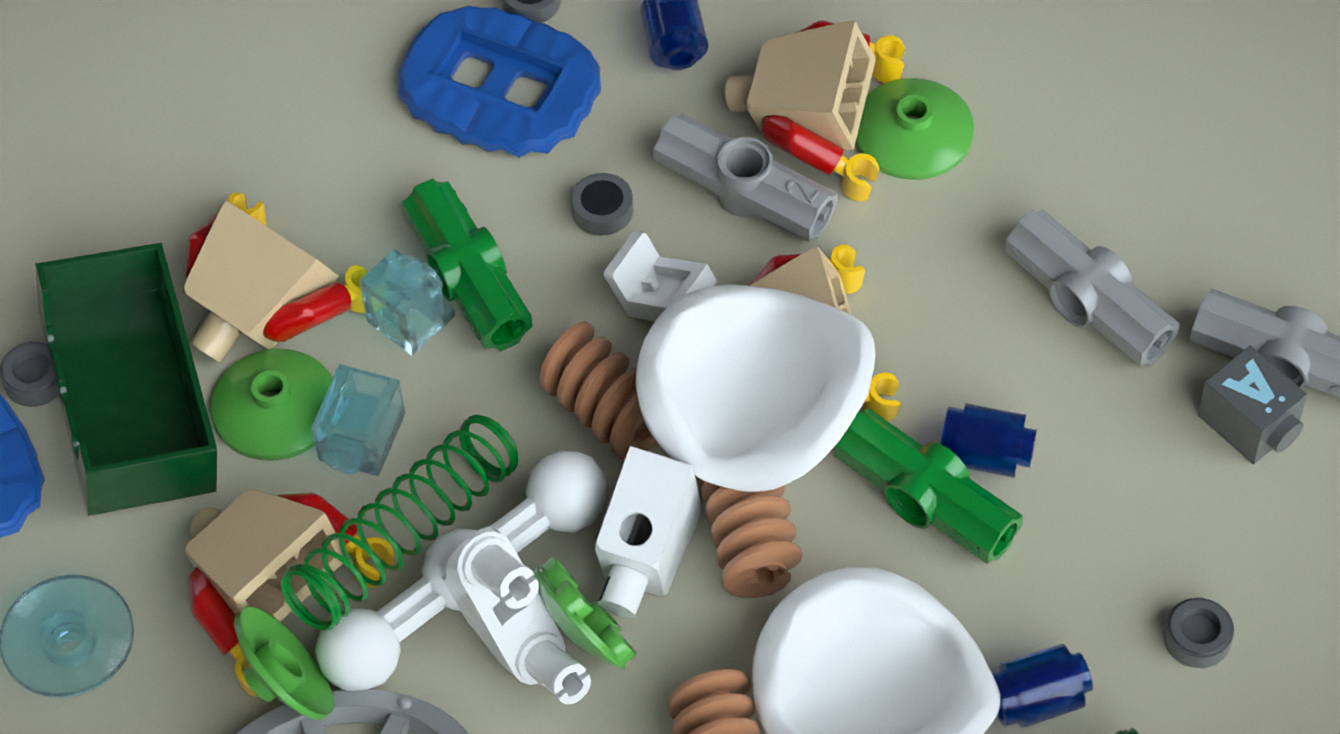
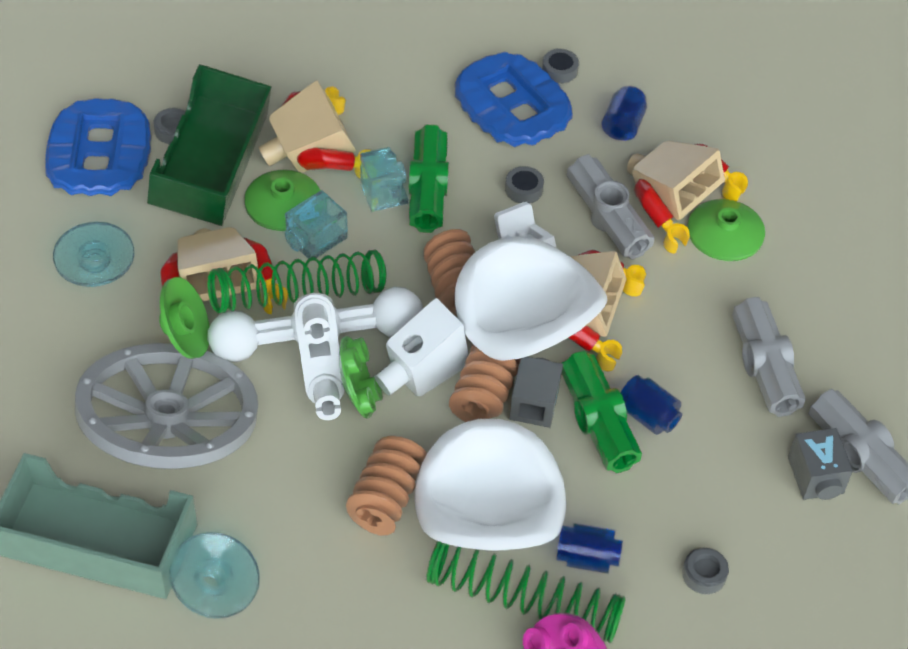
camera: 25 degrees right, 5 degrees down
(829, 507) = (536, 391): none -> dark grey brick

